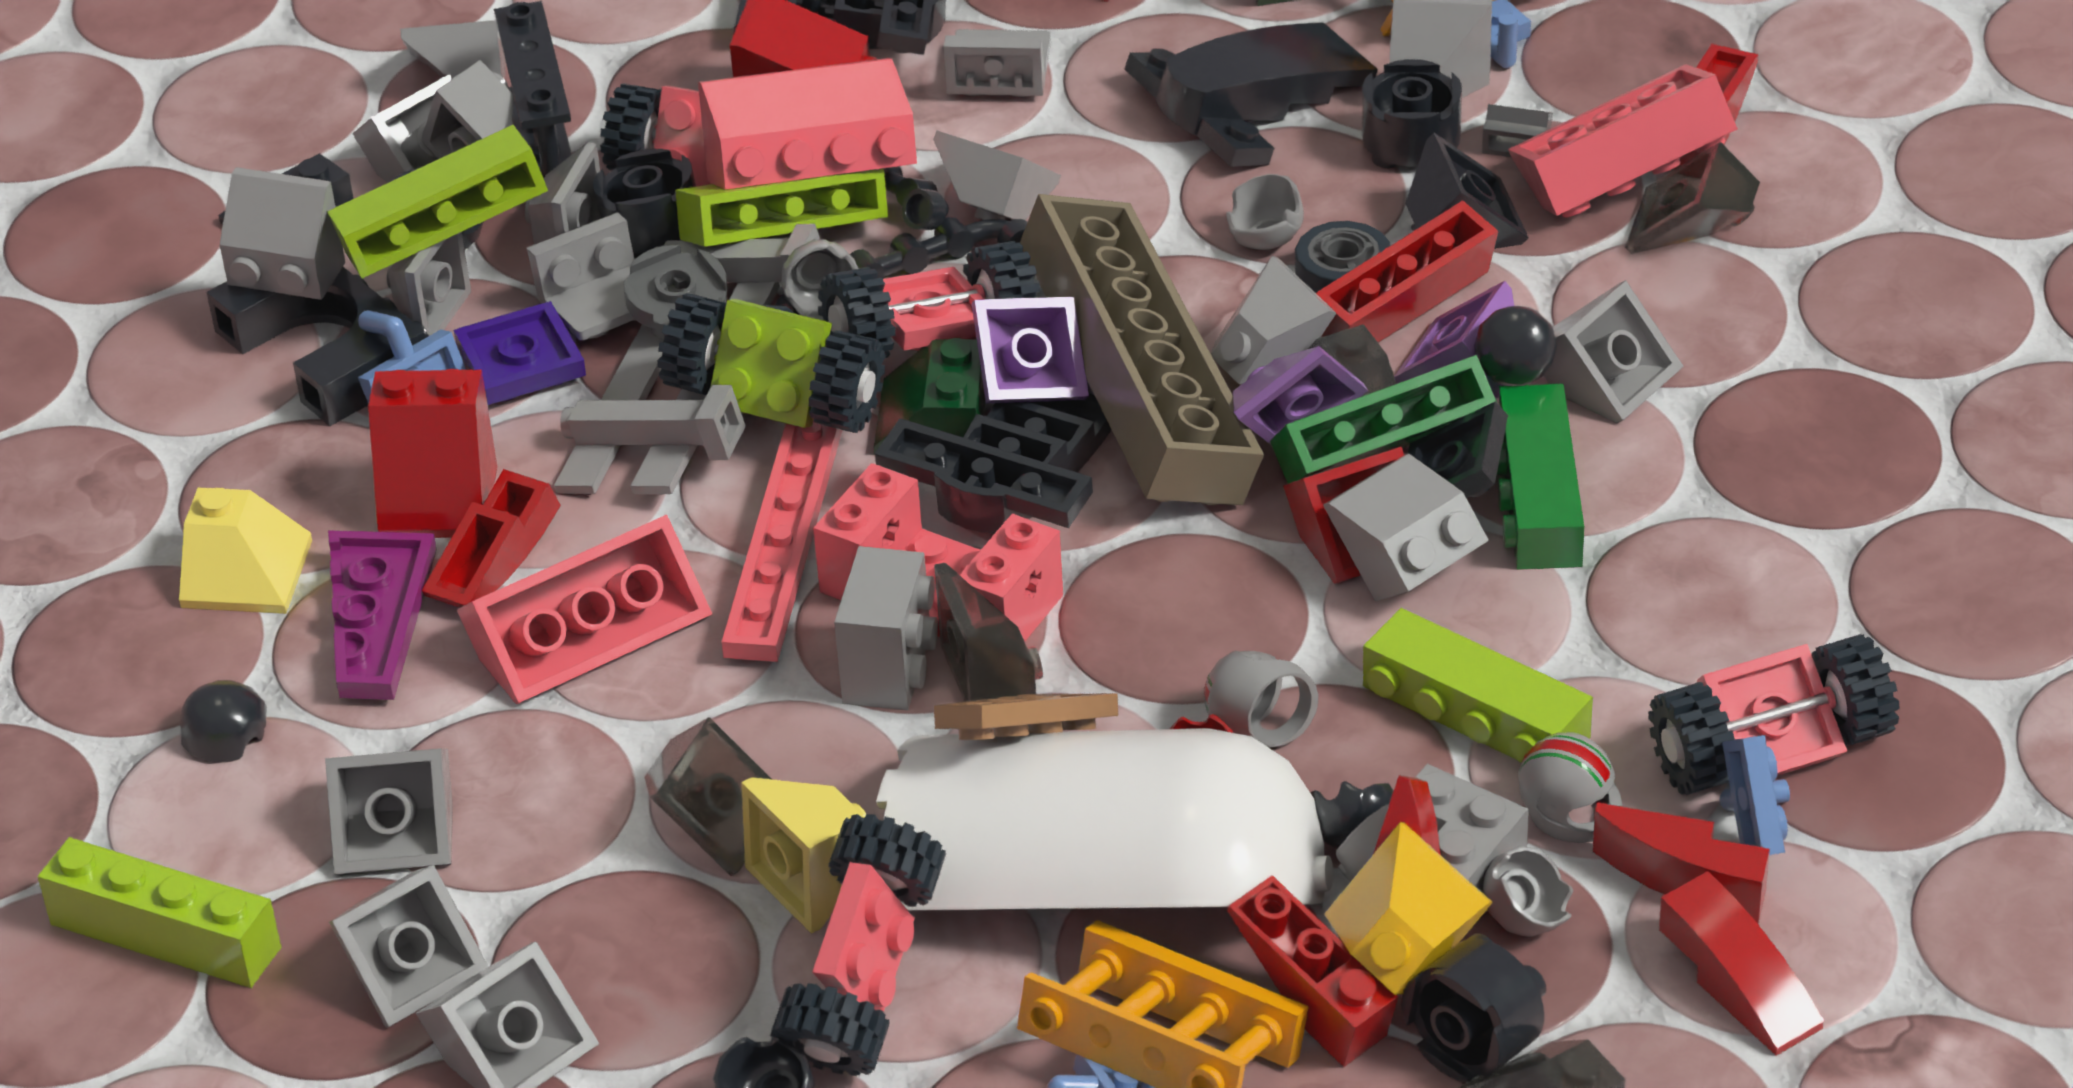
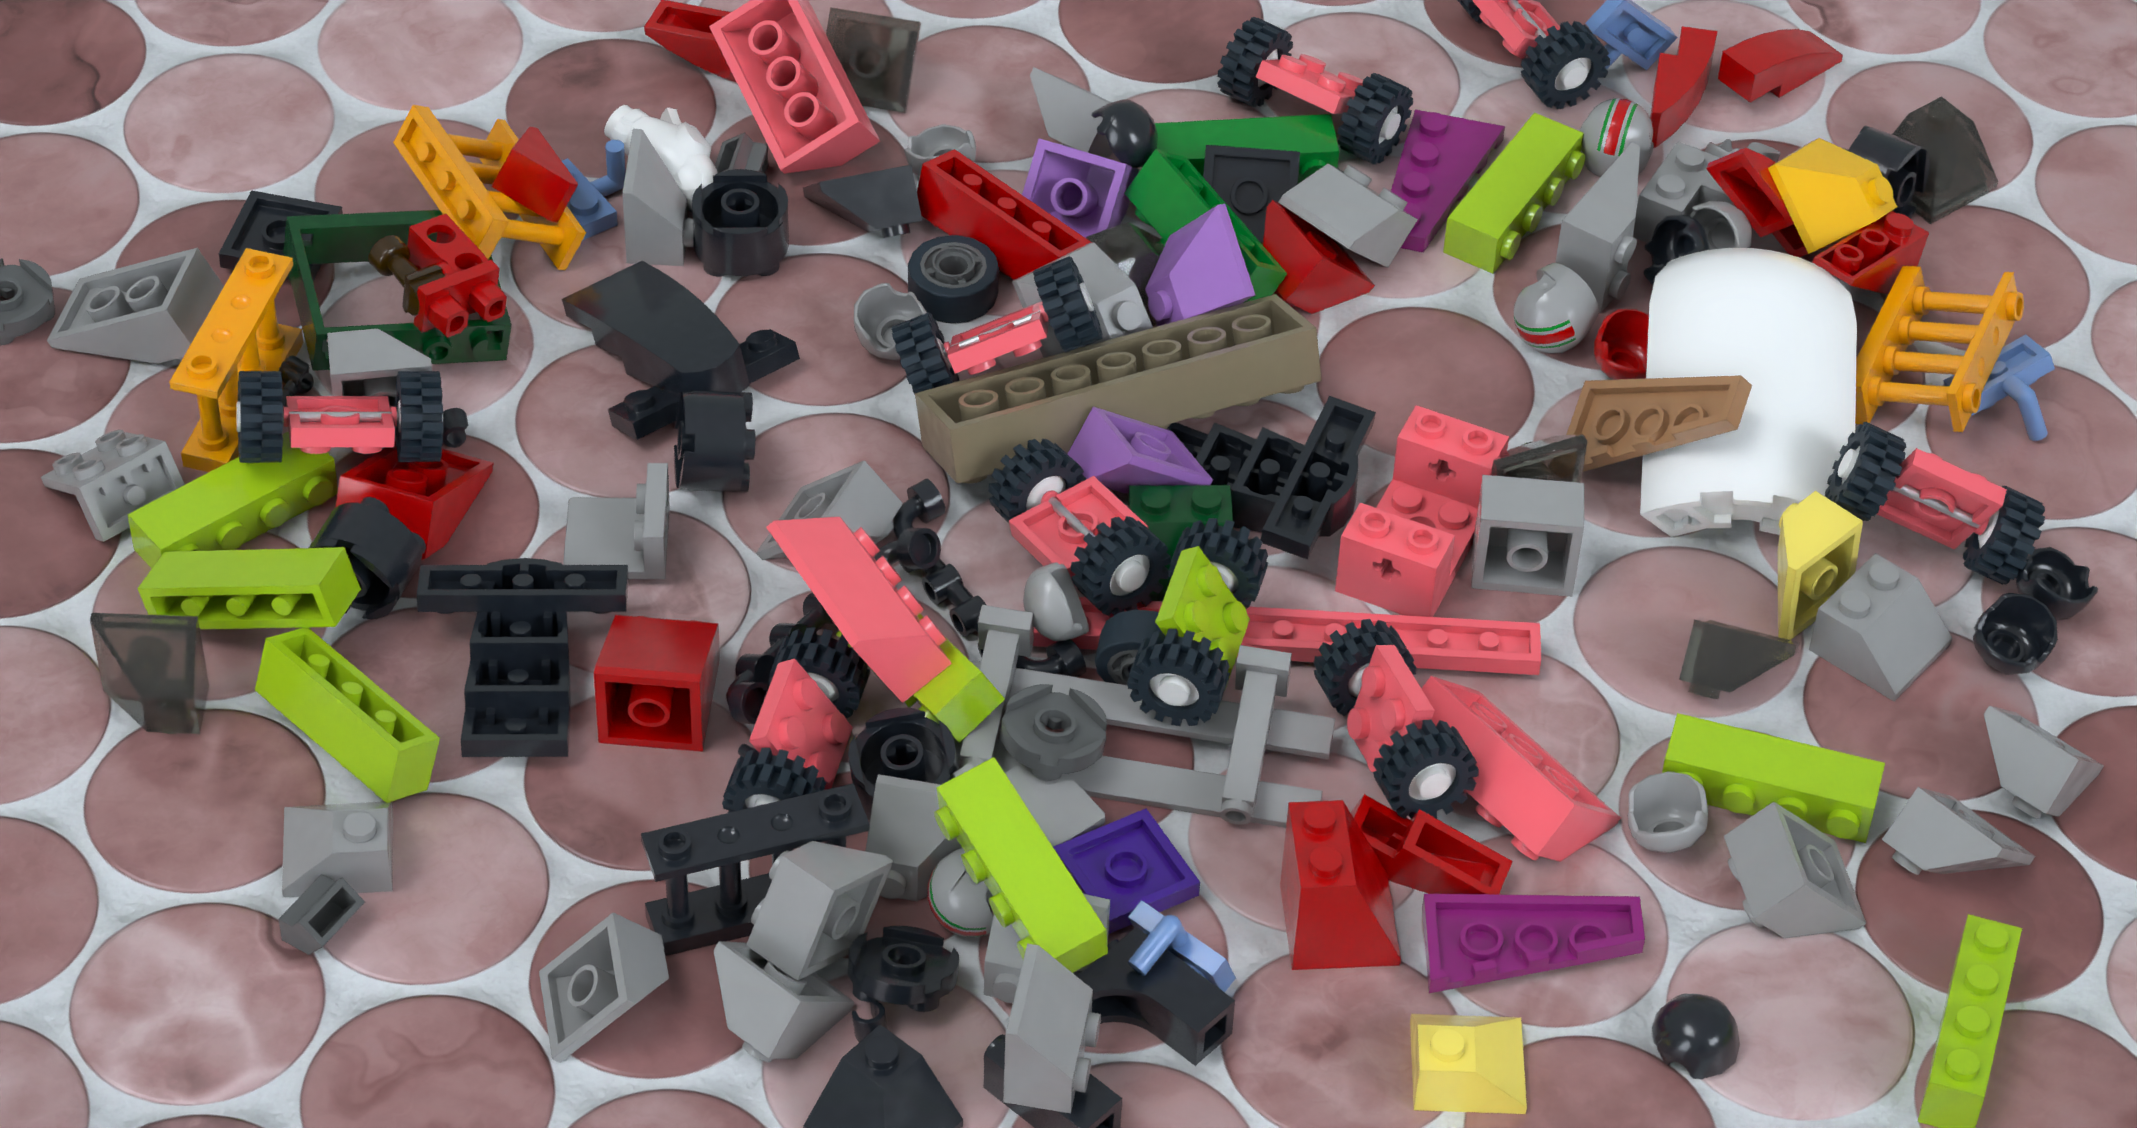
camera: 100 degrees left, 5 degrees up
(491, 718) = (1667, 812): none -> light grey hair
(499, 252) = (957, 899): none -> light grey helmet
(526, 807) = (1753, 769): none -> lime brick
(629, 493) = (1391, 720): none -> plate
(688, 1035) = (2015, 634): none -> black hair
(727, 924) = (1880, 628): none -> light grey slope
(1091, 91) = (713, 441): none -> black brick
(1199, 250) = (1064, 305): none -> black plate
(1370, 729) = (1600, 229): none -> light grey slope
(1523, 68) = (677, 144): none -> white animal
(1531, 256) = (938, 141): none -> light grey hair
(1558, 643) = (1437, 166): none -> magenta wing
(1633, 522) = (1371, 108): none -> black plate

